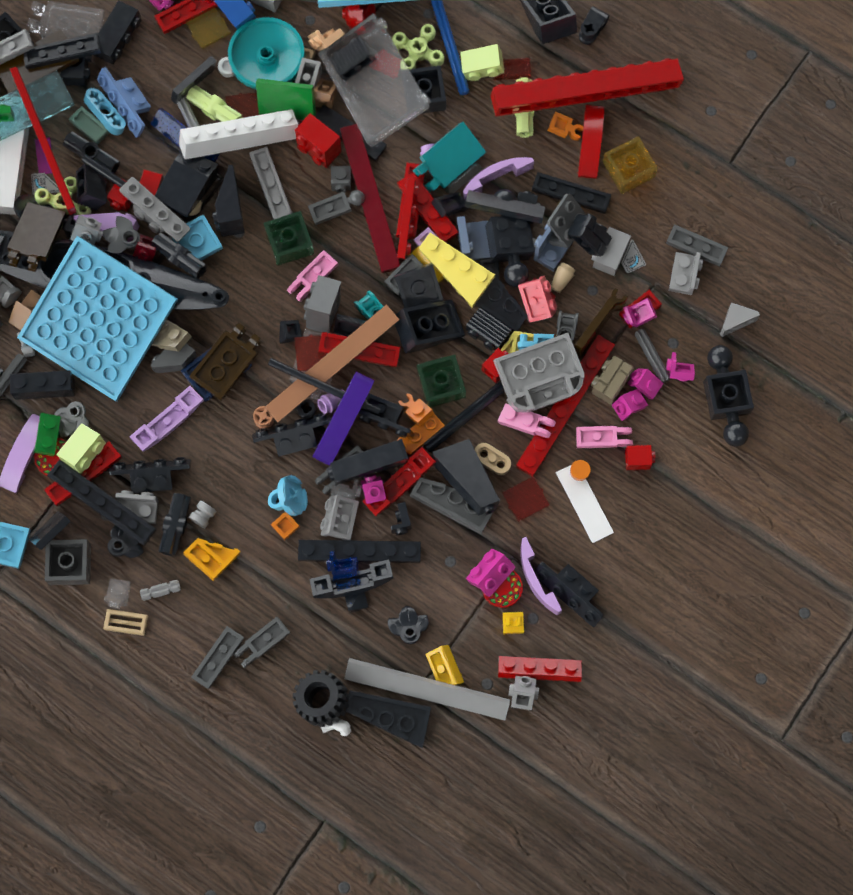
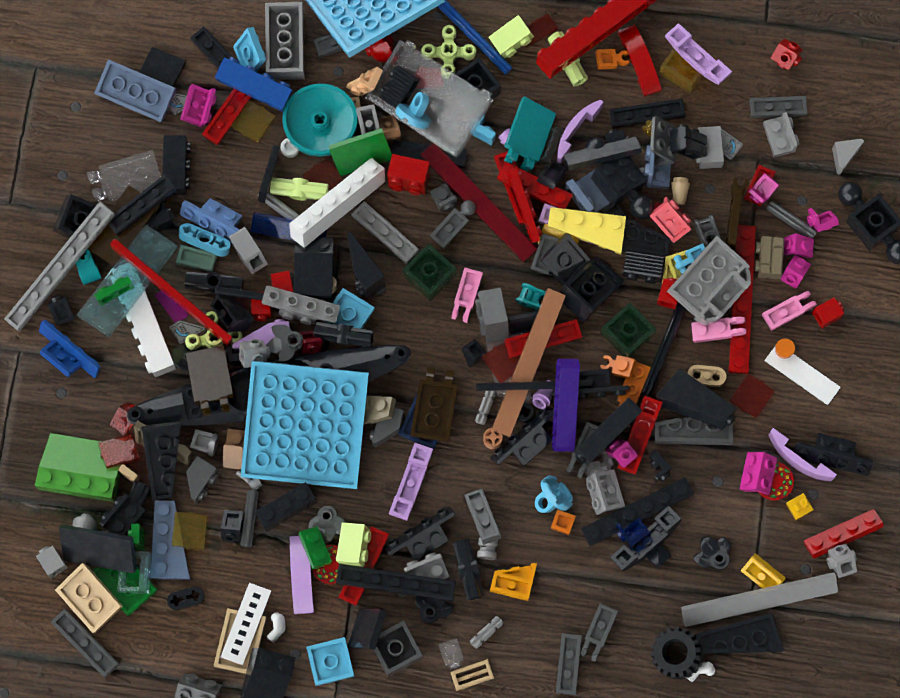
camera: 25 degrees left, 0 degrees up
(135, 138) = (248, 250): none -> light grey slope
(213, 483) = (482, 516): none -> dark grey tile
(273, 386) = (485, 407): none -> light grey axle
(351, 87) = (415, 111): none -> medium azure tile
(409, 135) = (484, 133): none -> medium azure bracket
(641, 158) = (697, 56): none -> lavender slope
(731, 200) = (787, 54): none -> red brick

